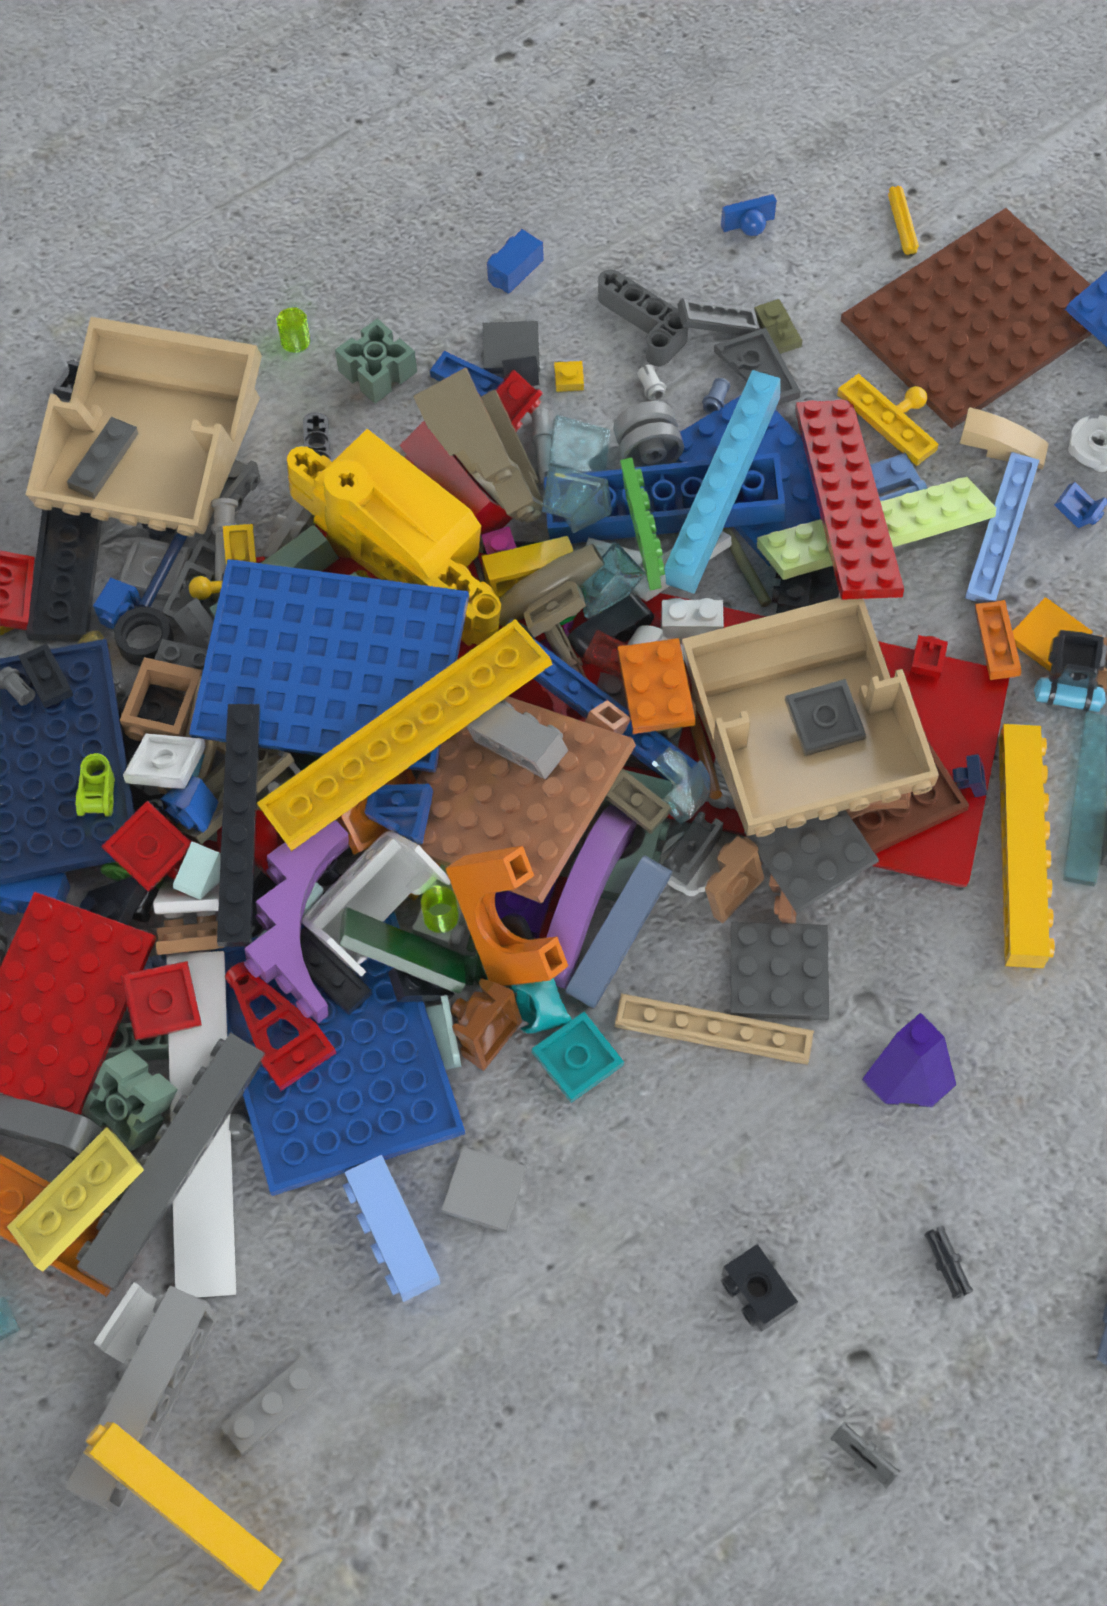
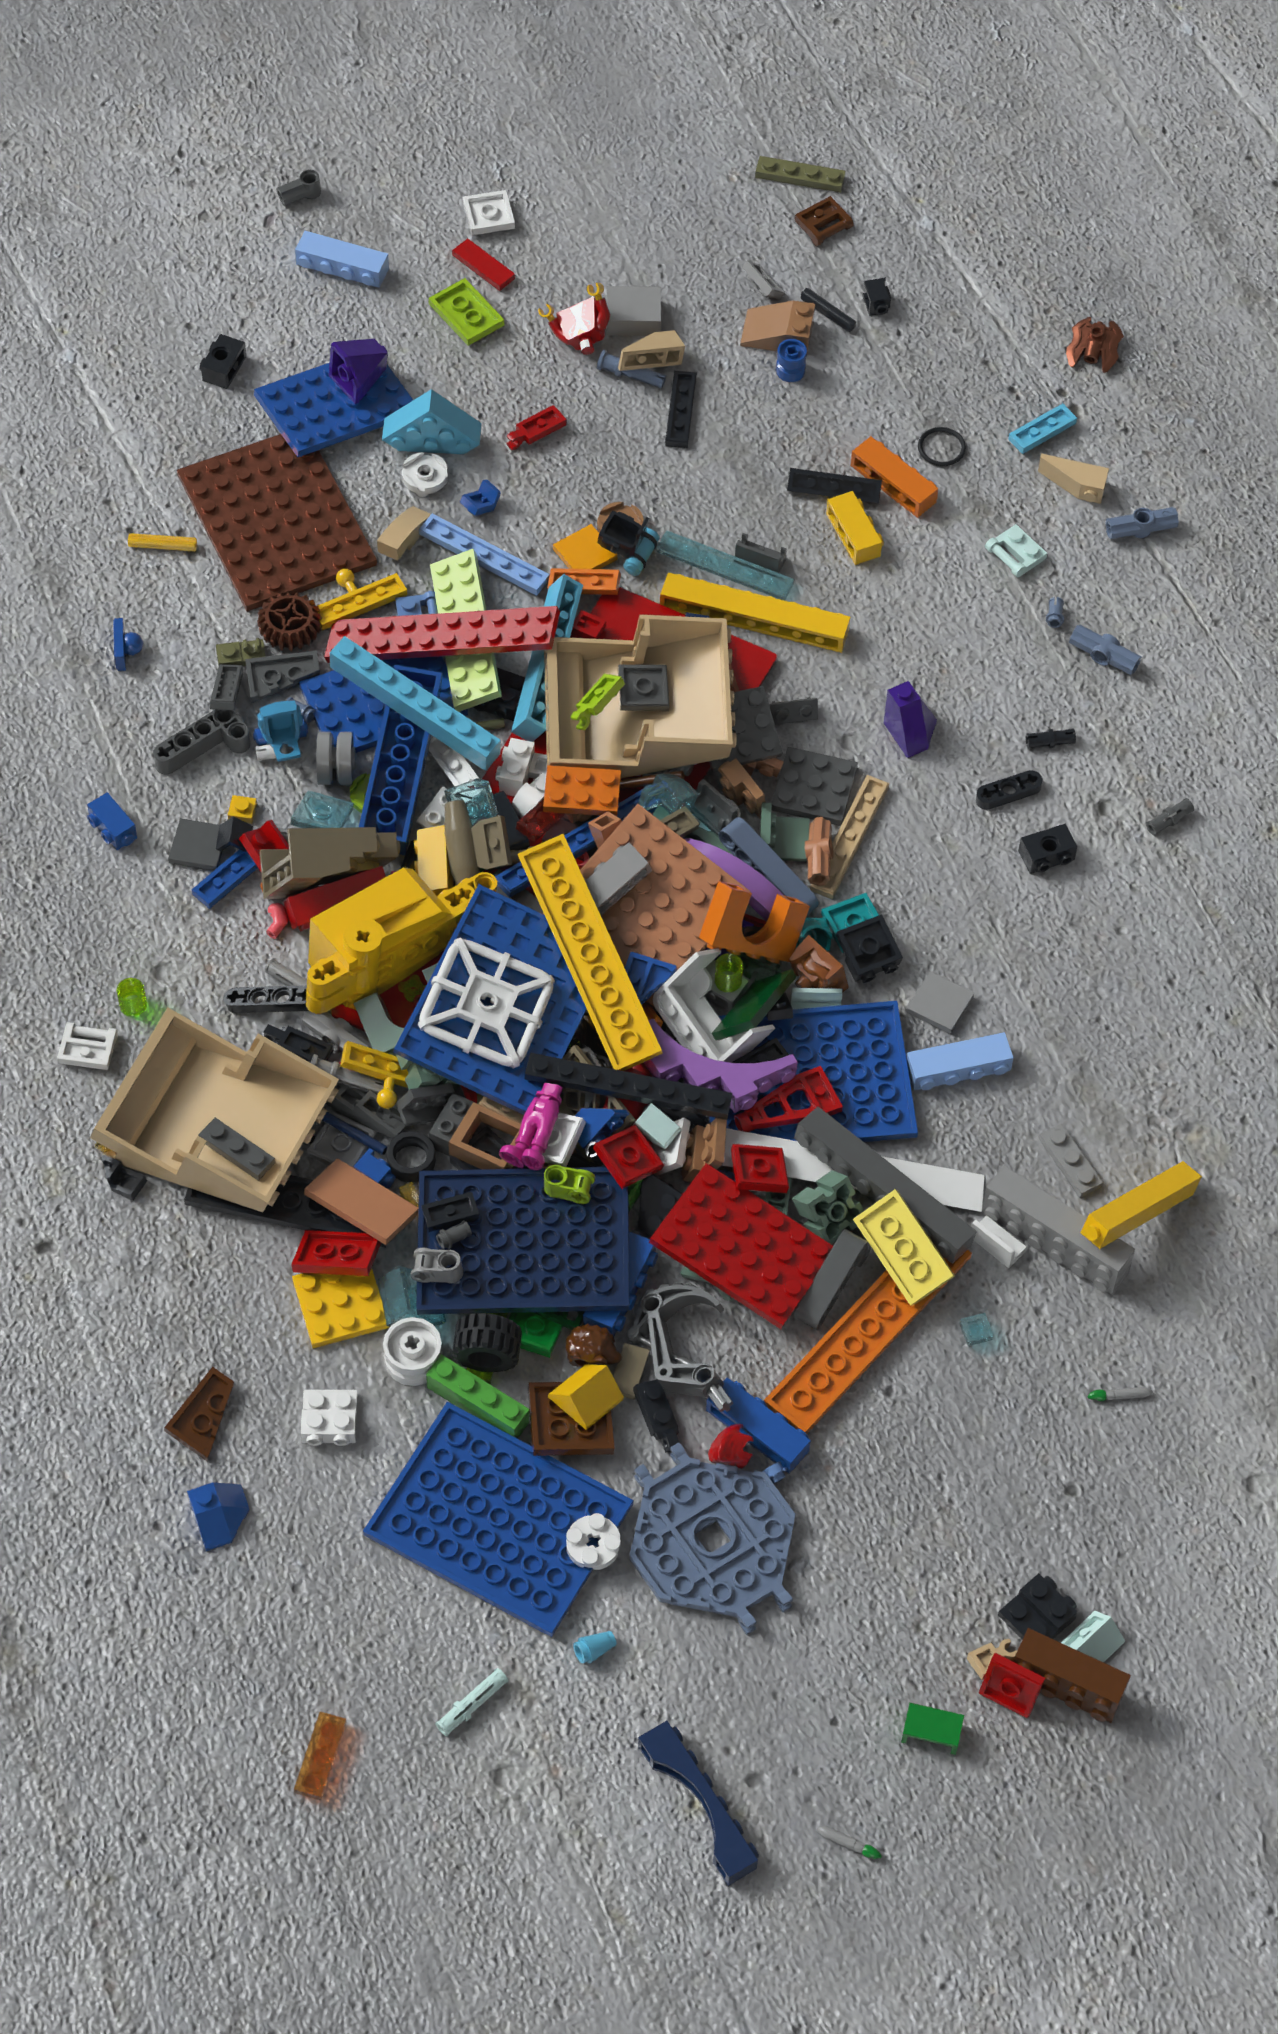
camera: 80 degrees left, 5 degrees down
(65, 594) = (361, 1201): none -> nougat tile
(162, 736) = (538, 1119): none -> dark pink piece
(221, 309) = (87, 1052): none -> white plate
(268, 497) = (299, 1042): none -> black hinge
(321, 655) = (472, 1009): none -> white plate
(376, 360) = (189, 939): sand green brick -> none
(533, 1079) = (869, 949): none -> black plate
(576, 497) = (398, 807): clear light blue slope -> none
(643, 523) = (443, 762): bright green plate -> none
(670, 990) = (819, 851): none -> nougat piece
(672, 376) = (281, 725): none -> dark azure piece
(685, 942) = (784, 834): none -> sand green bracket
(782, 664) = (597, 699): none -> lime plate
(833, 356) = (294, 619): none -> copper gear
(869, 1234) = (1015, 781): none -> black beam
(881, 910) = (794, 711): none -> dark grey hinge
(897, 618) = (531, 709): none -> medium azure brick

